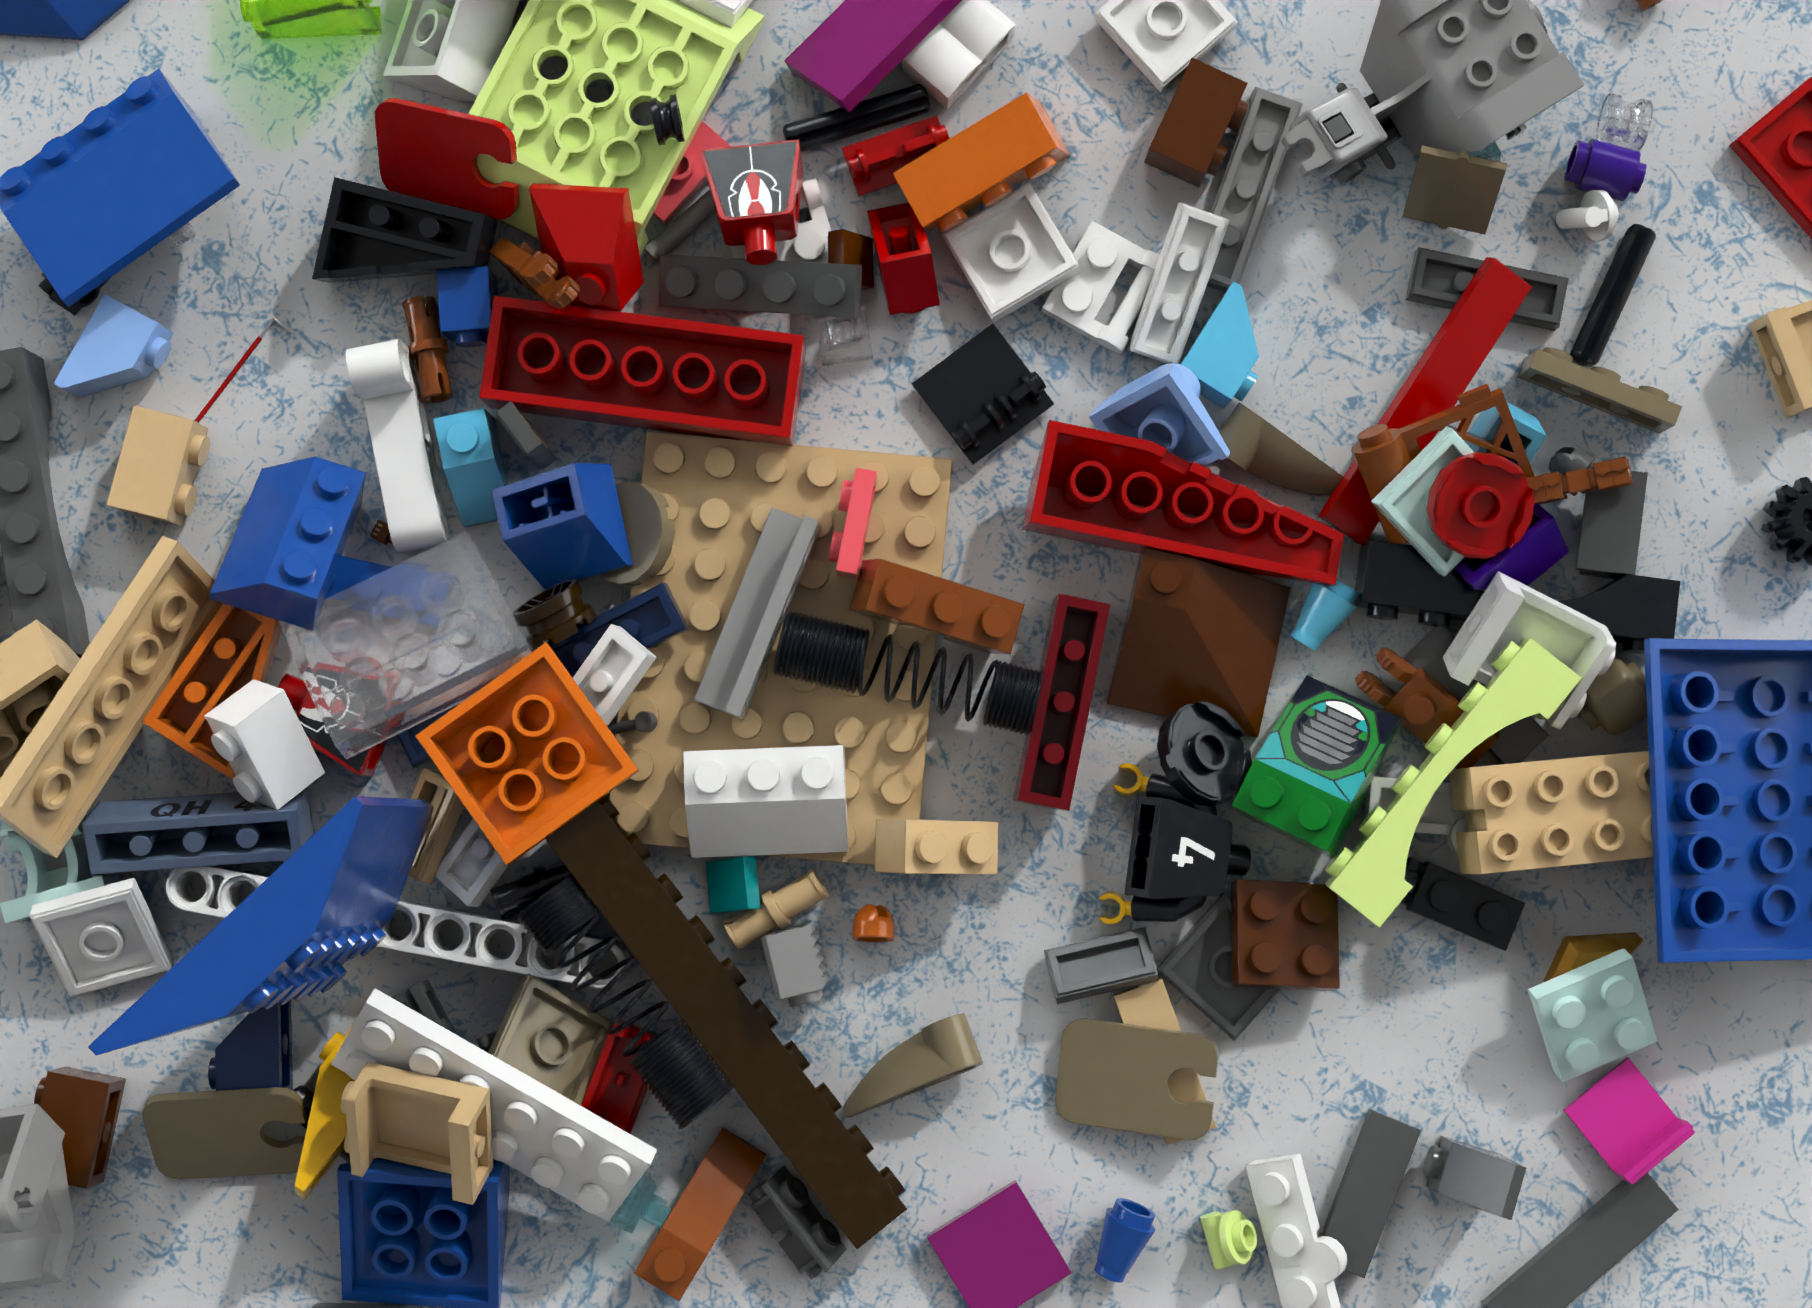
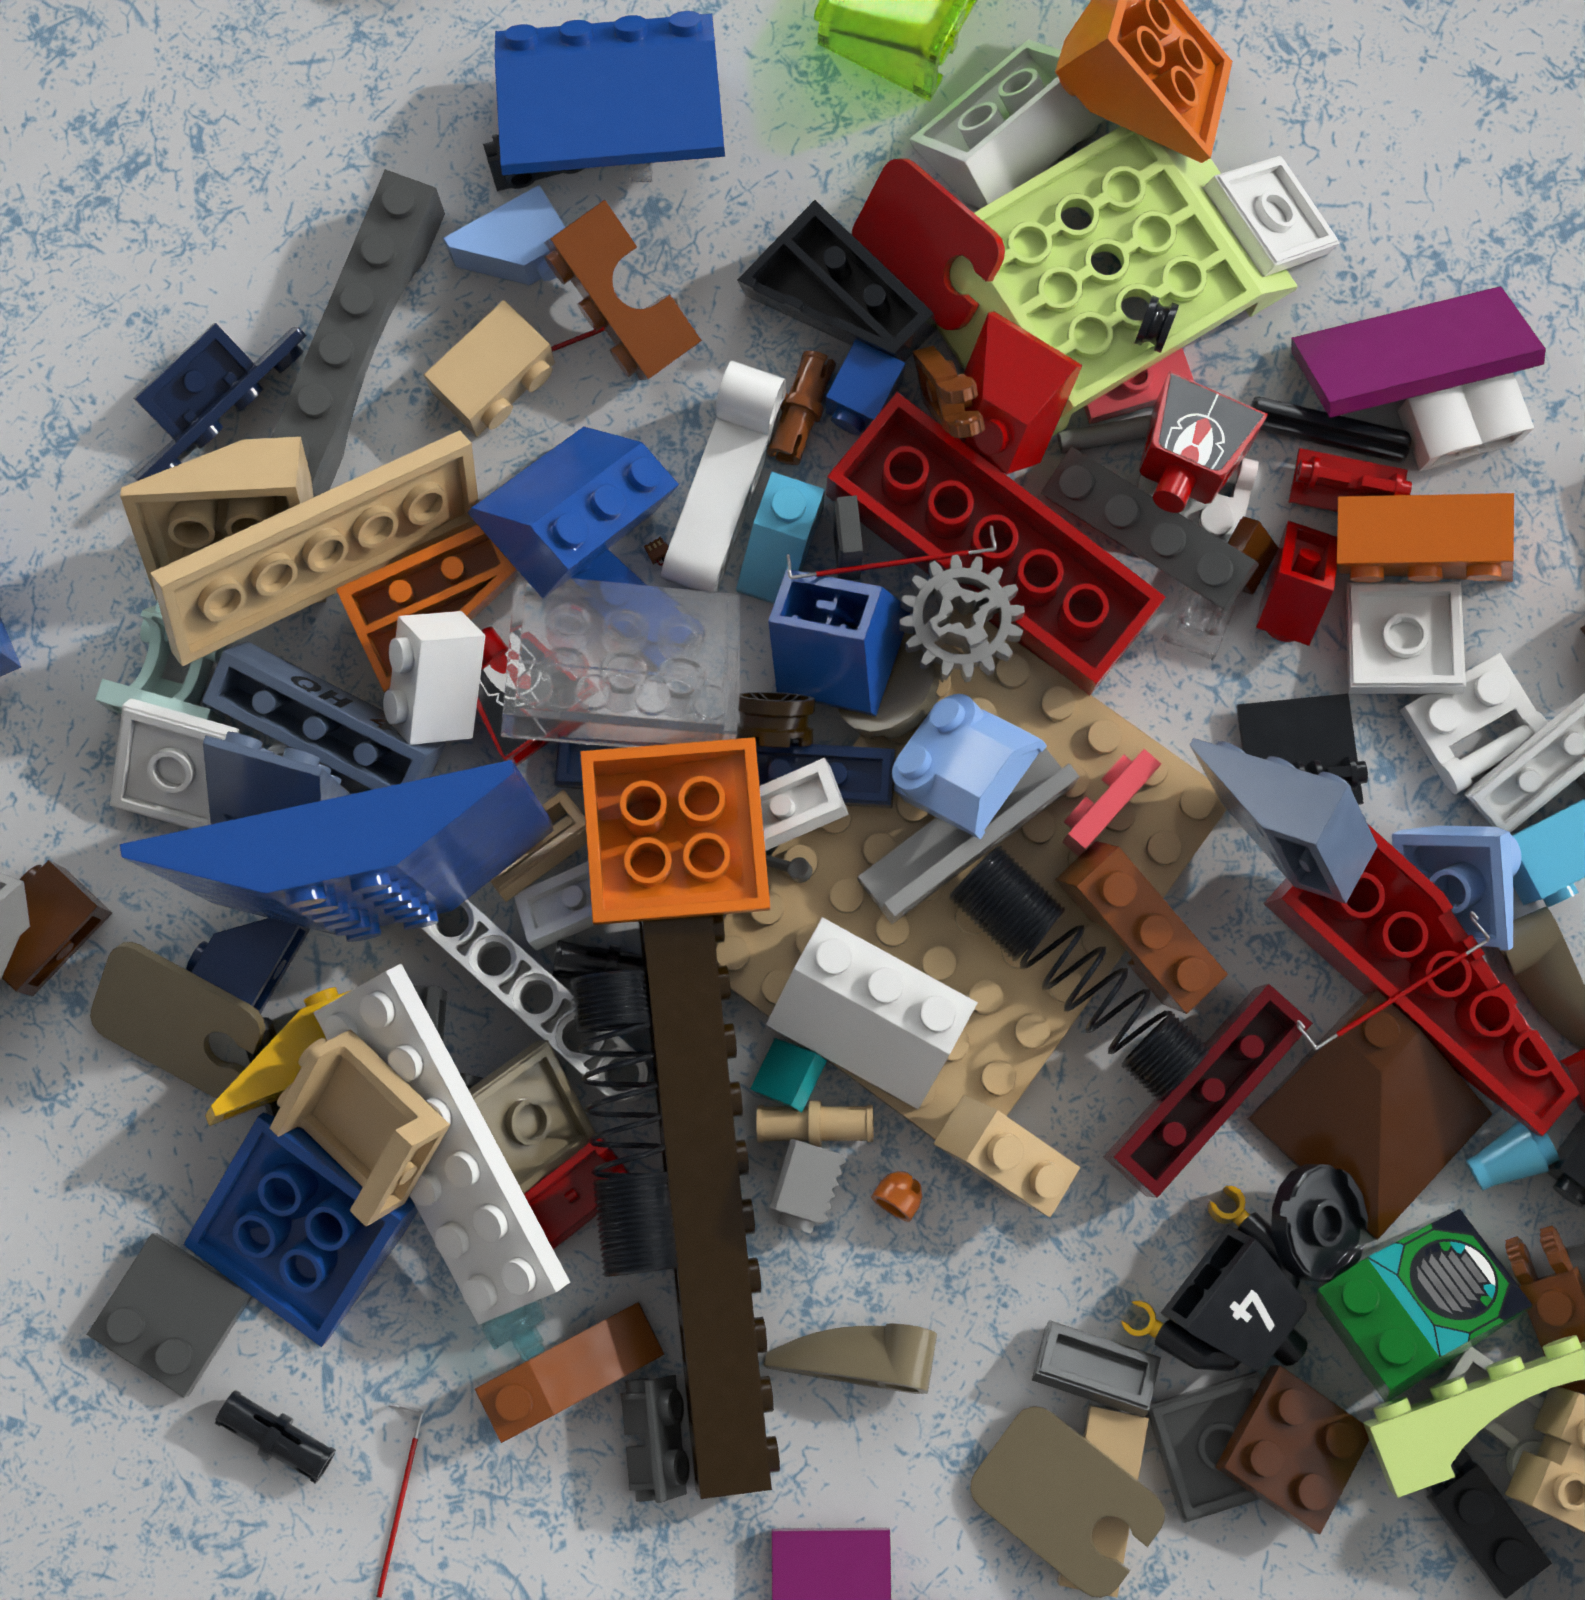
camera: 30 degrees right, 5 degrees down
(175, 919) = (255, 781): none -> sand blue slope
(179, 329) = (587, 256): none -> dark orange arch
(572, 437) = (891, 563): none -> red piece
(664, 428) = (951, 596): none -> light grey gear
(722, 563) = (963, 763): none -> light blue slope
(1003, 452) = (1296, 817): none -> sand blue slope
(1165, 540) = (1300, 1025): none -> red piece

